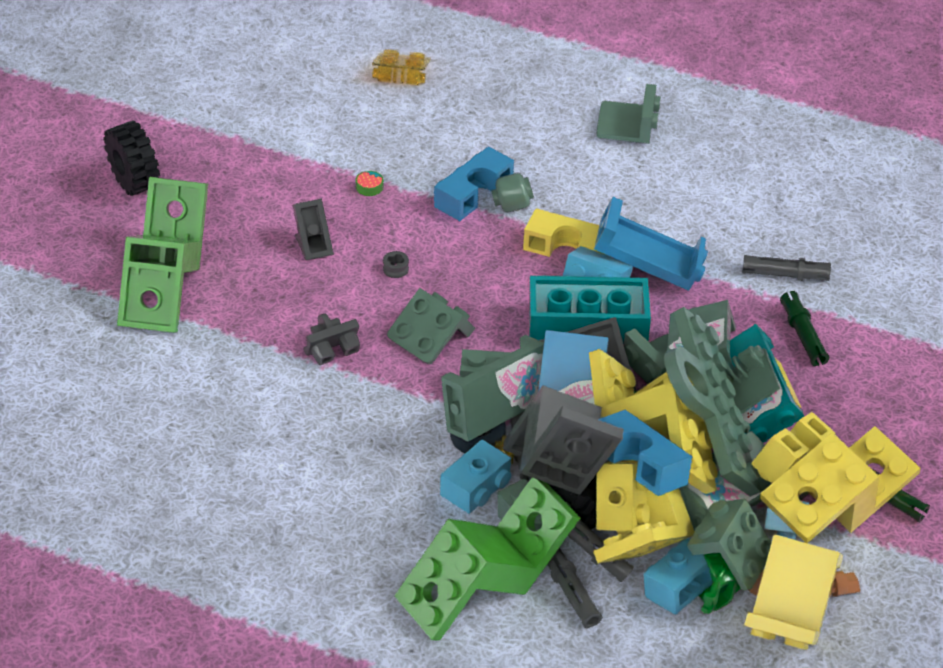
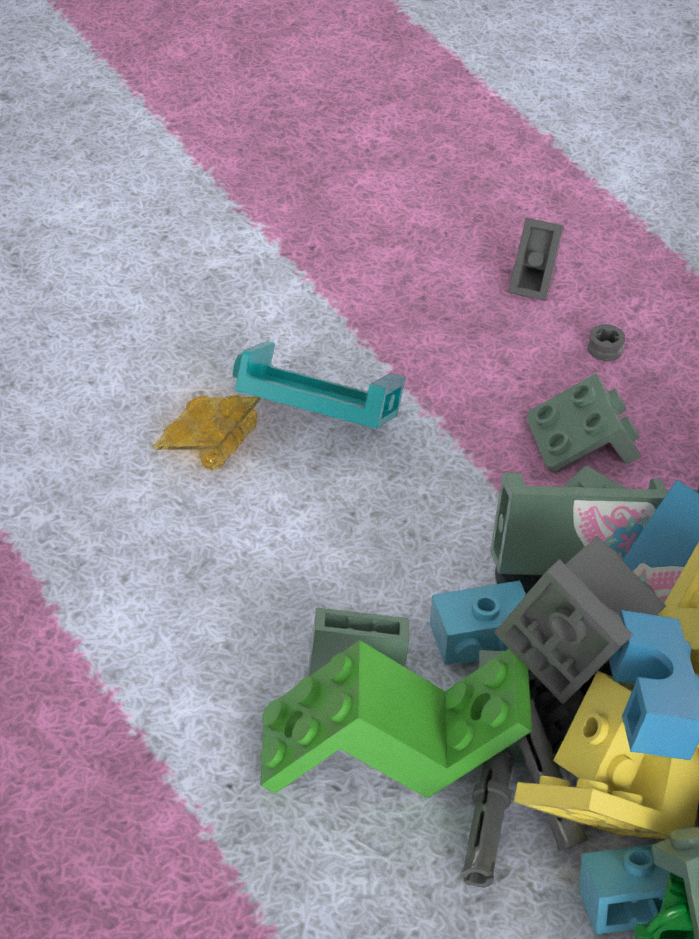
camera: 35 degrees right, 0 degrees up
(131, 156) = (397, 100): black tyre -> none
(162, 255) = (316, 207): bright green bracket -> none
(203, 443) = (212, 427): none -> clear yellow hinge
(258, 387) = (368, 408): none -> teal panel
(331, 334) = (453, 380): dark grey hips -> none
(369, 183) = (655, 244): tile -> none
(416, 527) = (339, 629): none -> sand green brick

